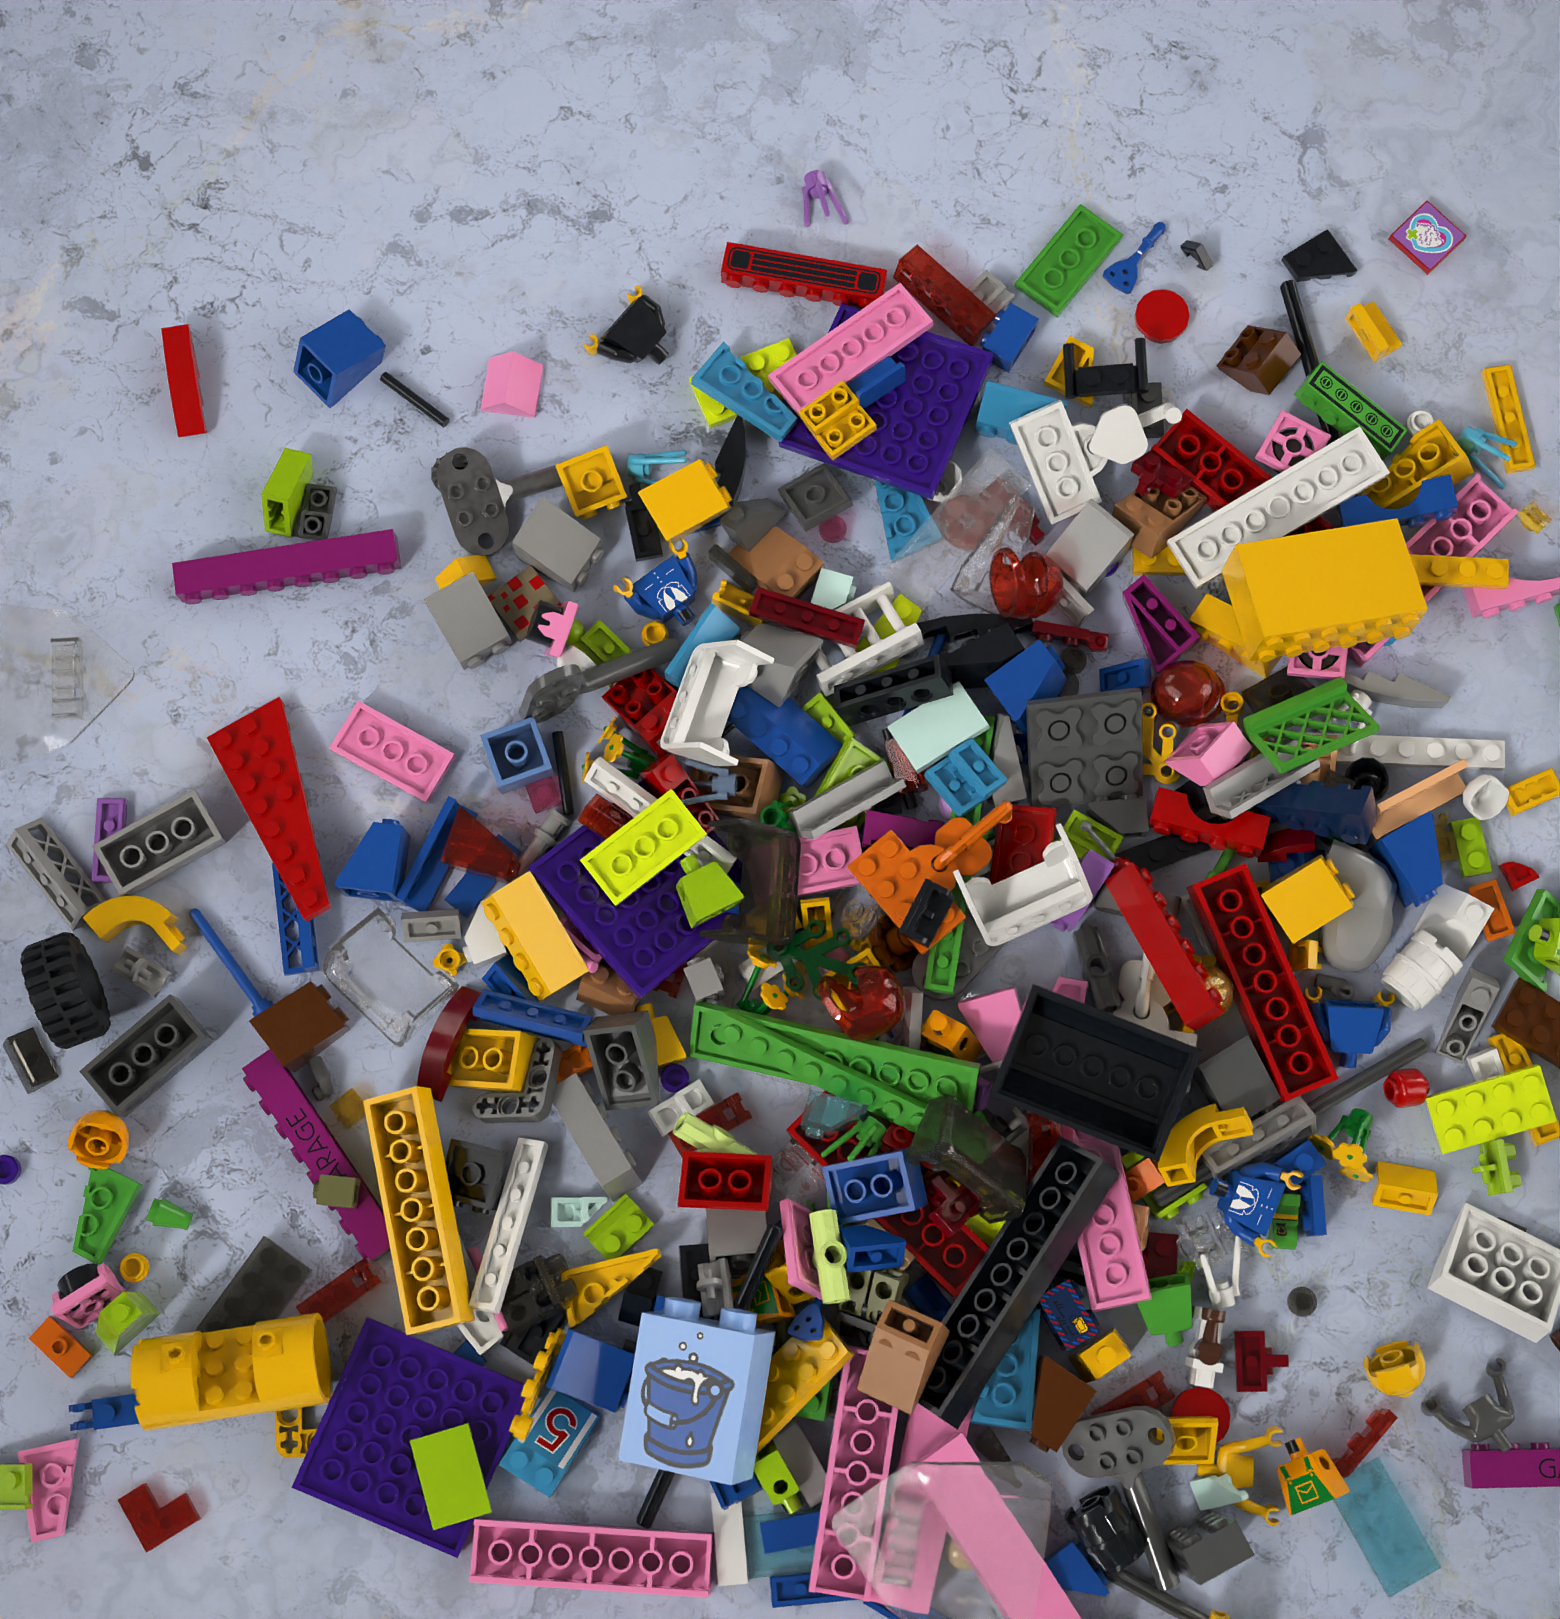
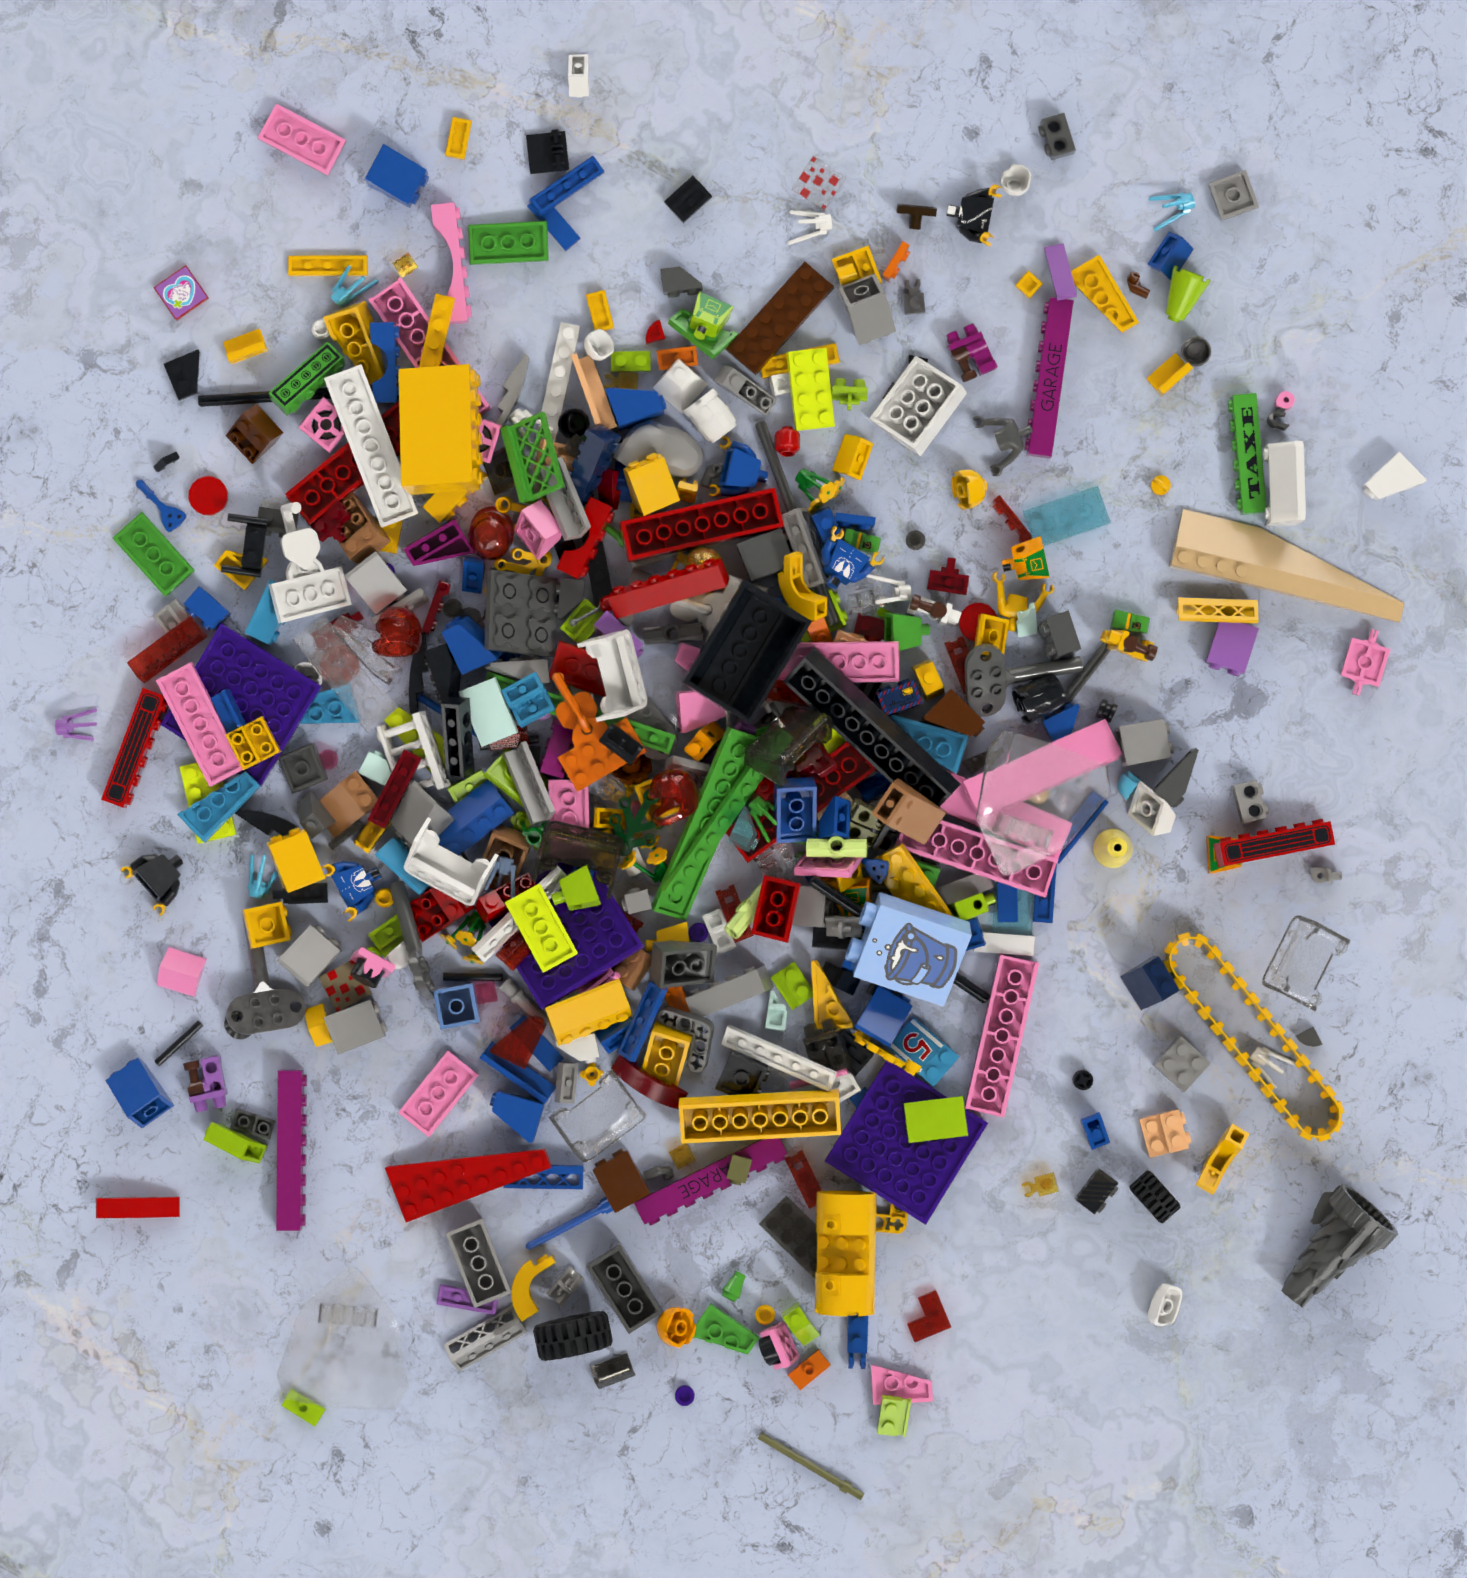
camera: 85 degrees left, 10 degrees up
(360, 448) = (210, 1087): none -> medium lavender hips

